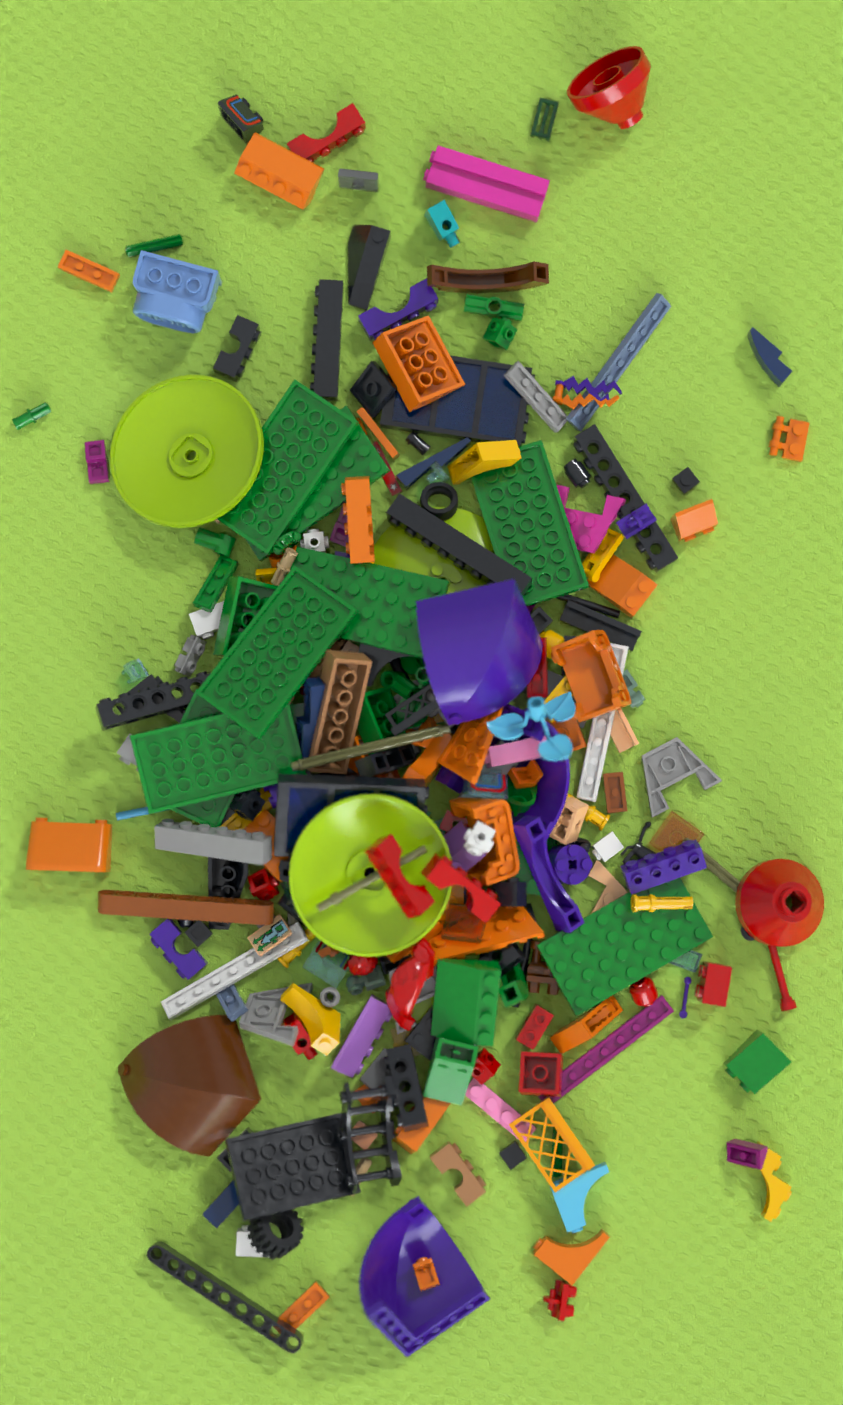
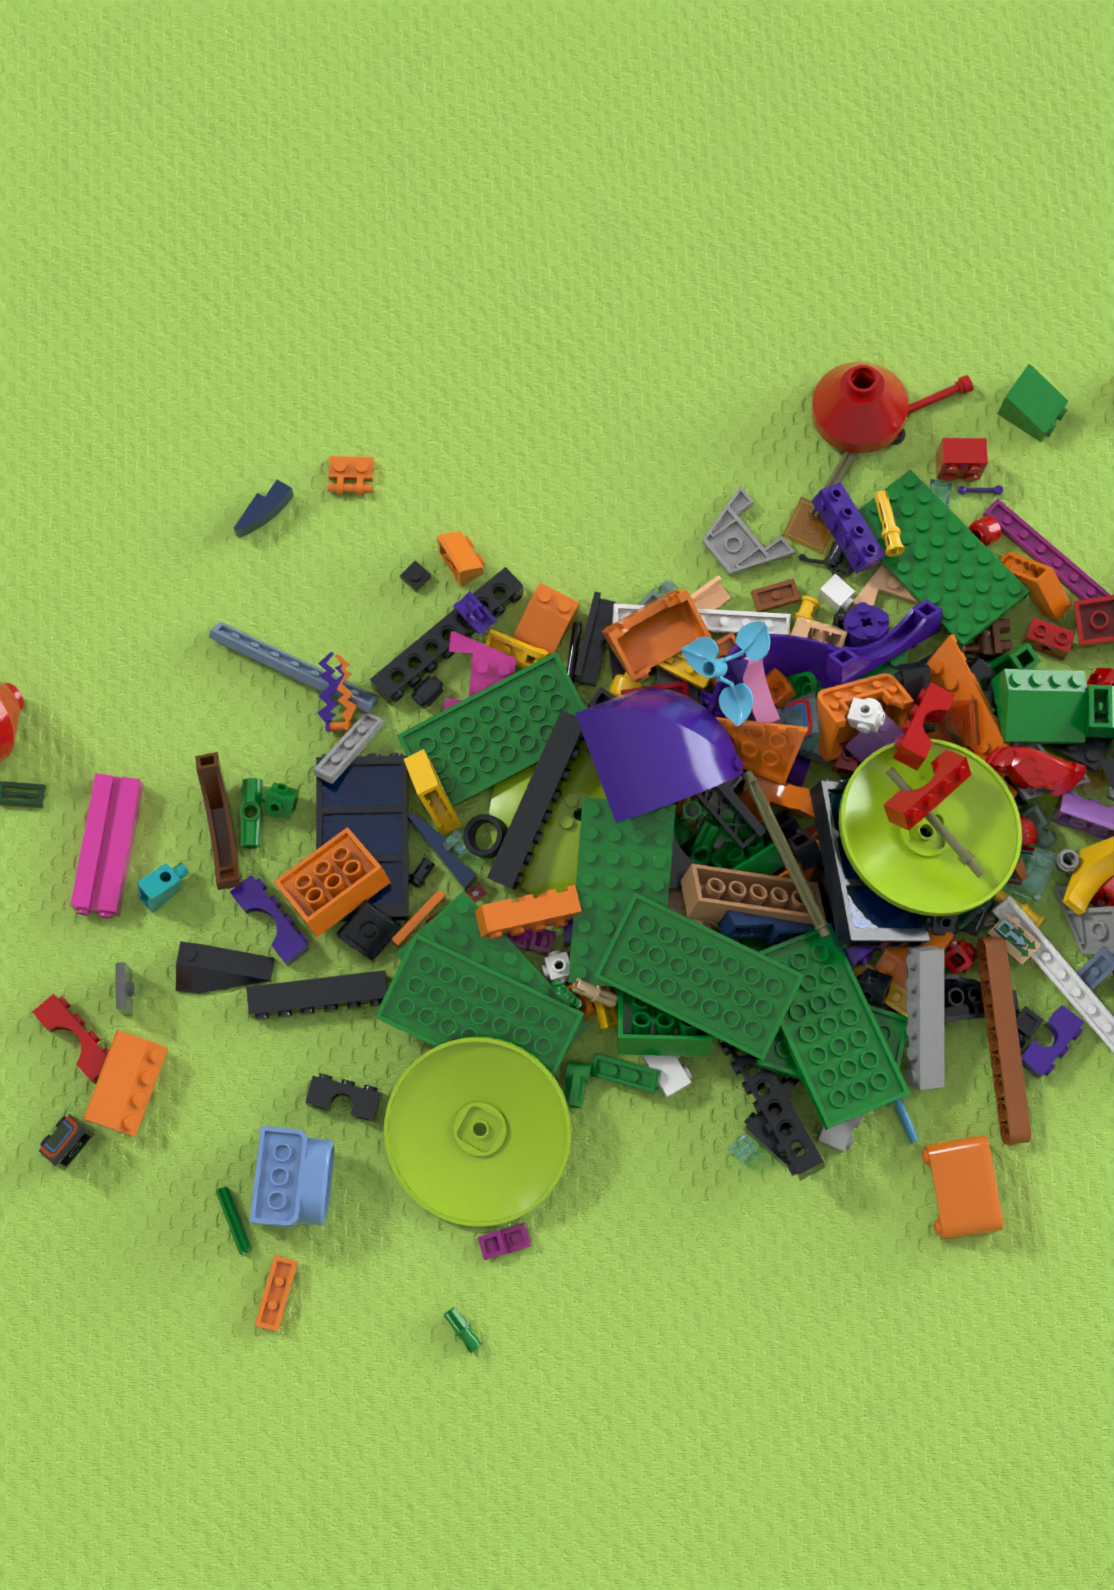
camera: 100 degrees left, 10 degrees down
(187, 664) = (722, 1090): light grey hinge -> none

